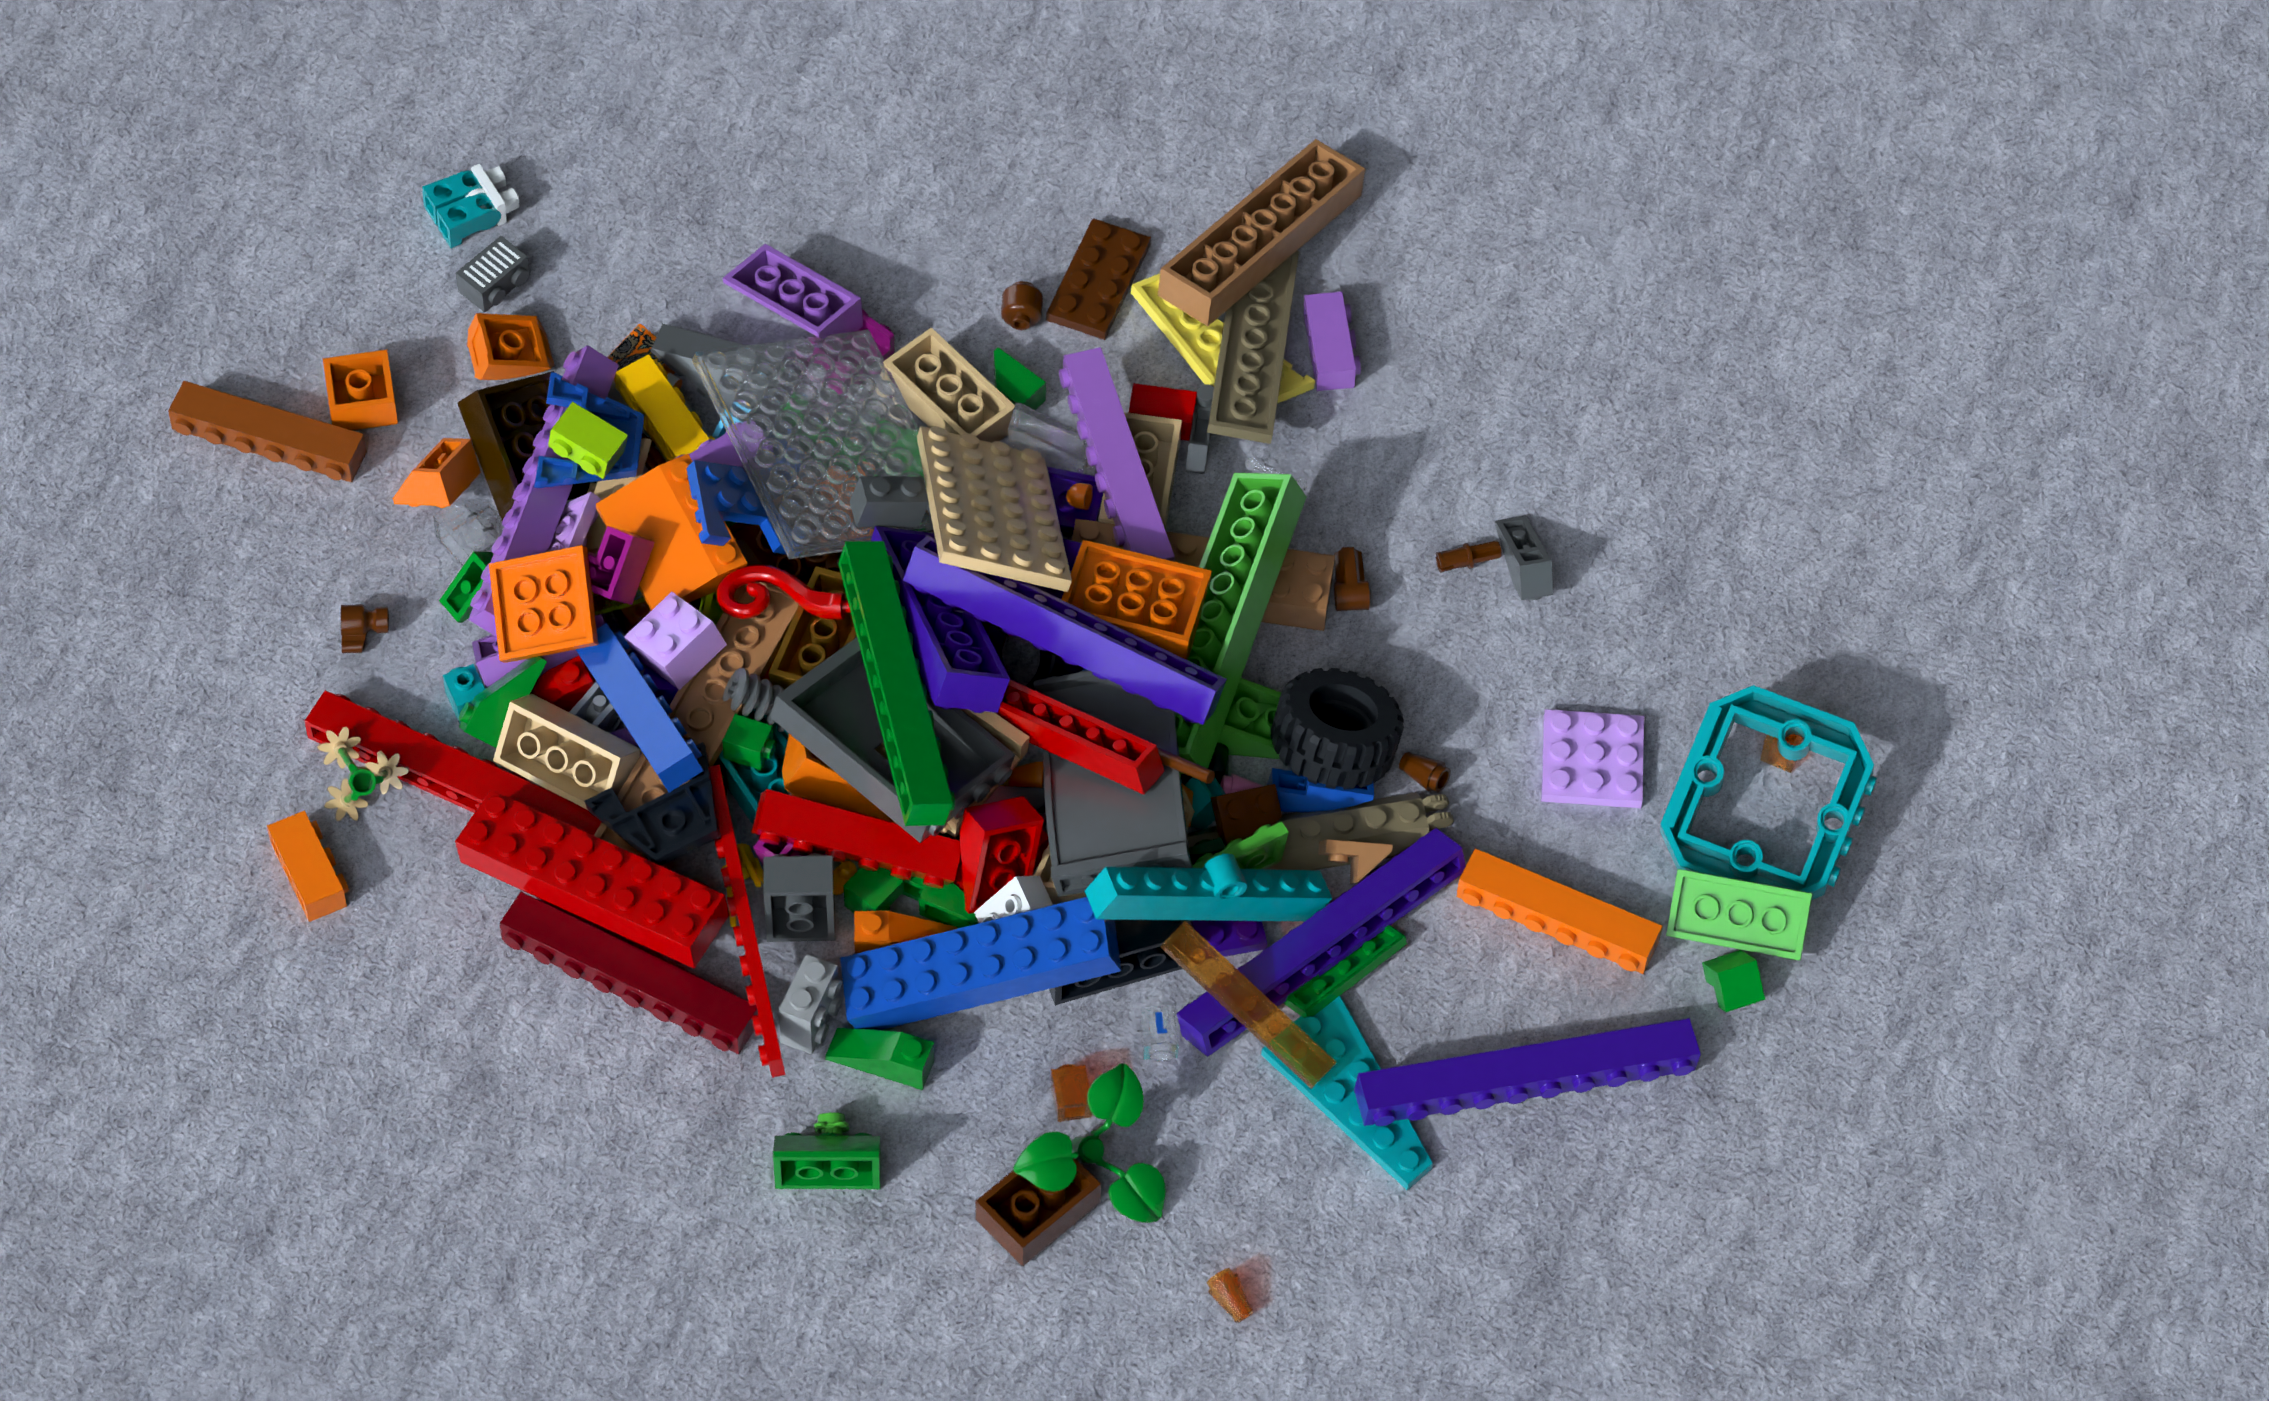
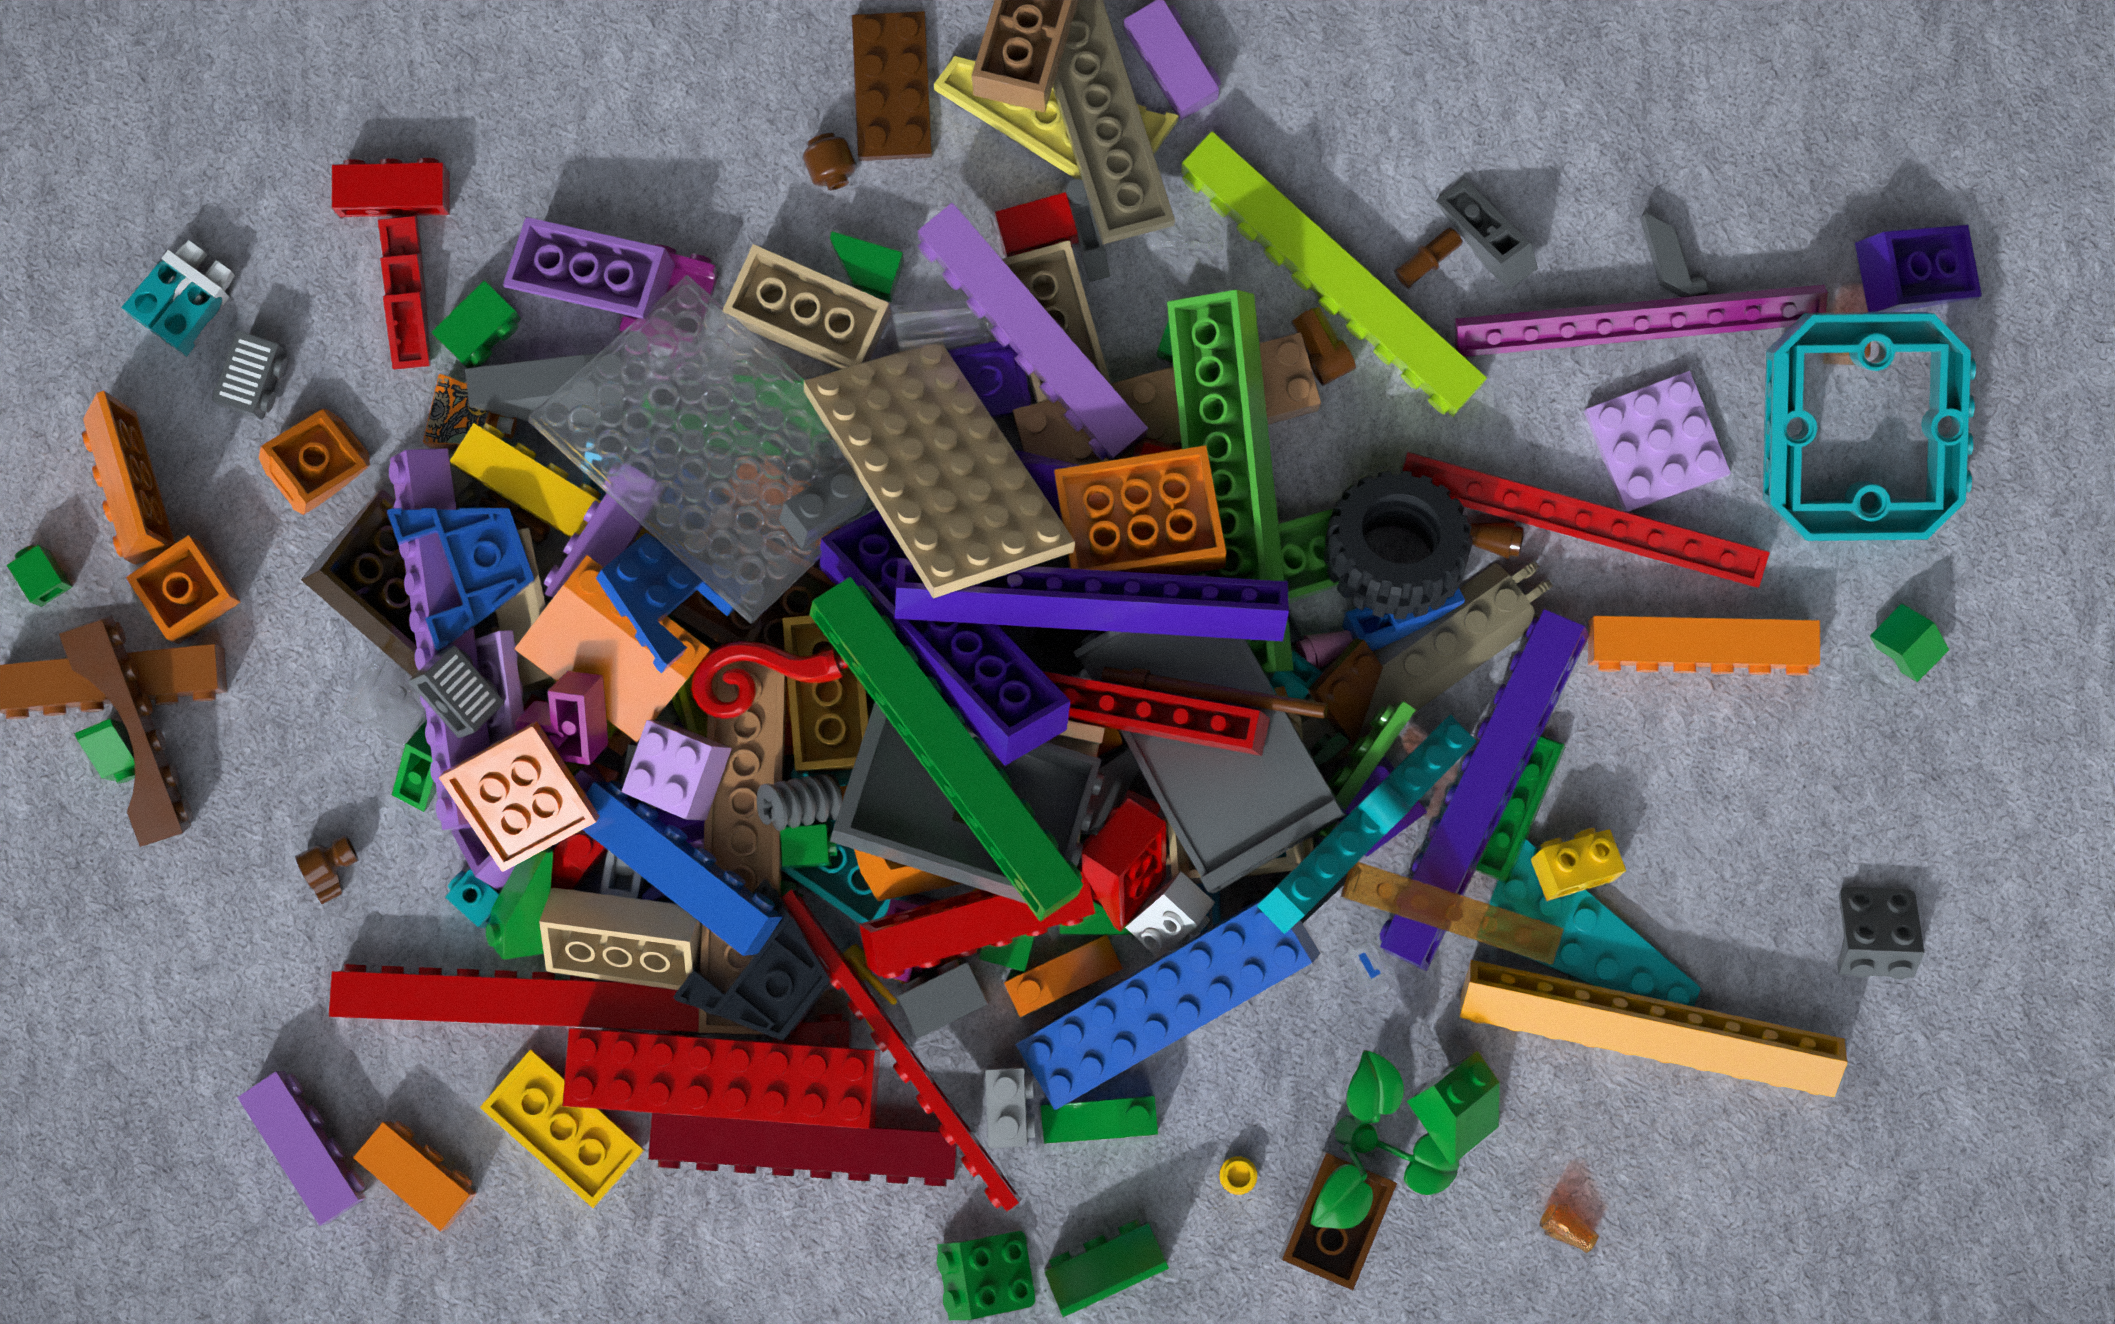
camera: 20 degrees left, 25 degrees up
(230, 807) = (302, 1146): none -> medium lavender brick
(243, 473) = (109, 750): none -> slope
(254, 524) = (100, 656): none -> reddish brown arch
(255, 342) = (38, 575): none -> green brick
(361, 294) = (127, 479): none -> orange slope
(361, 779) = (426, 1077): tan plant -> none
(440, 475) = (322, 661): orange slope -> none
(441, 887) = (572, 1142): none -> yellow plate
(535, 515) = (457, 691): none -> dark grey brick
(587, 440) = (468, 581): lime brick -> none
(643, 266) = (404, 292): none -> red slope
(671, 195) = (390, 188): none -> red brick
(688, 306) = (477, 326): none -> green brick
(726, 1127) = (985, 1276): none -> green bracket
(831, 1123) = (1089, 1224): bright green plate -> none
(973, 1144) = (1238, 1175): none -> yellow plate
(1070, 1092) = (1310, 1075): clear orange brick -> none
(1080, 496) = (1001, 376): orange hinge -> none
(1183, 1155) = (1459, 1106): none -> green slope
(1363, 855) = (1481, 673): medium nougat slope -> none
(1372, 1023) = (1577, 863): none -> yellow brick
(1375, 1170) = (1653, 1028): none -> light orange brick
(1383, 537) = (1332, 275): none -> lime brick
(1516, 794) = (1594, 521): none -> red plate
(1526, 1072) = (1755, 849): dark purple brick -> none
(1595, 656) = (1637, 320): none -> magenta plate
(1602, 1185) = (1880, 933): none -> dark grey bracket
(1666, 634) = (1669, 259): none -> dark grey piece
(1739, 914) = (1890, 570): plate -> none
(1884, 716) = (1918, 268): none -> dark purple slope

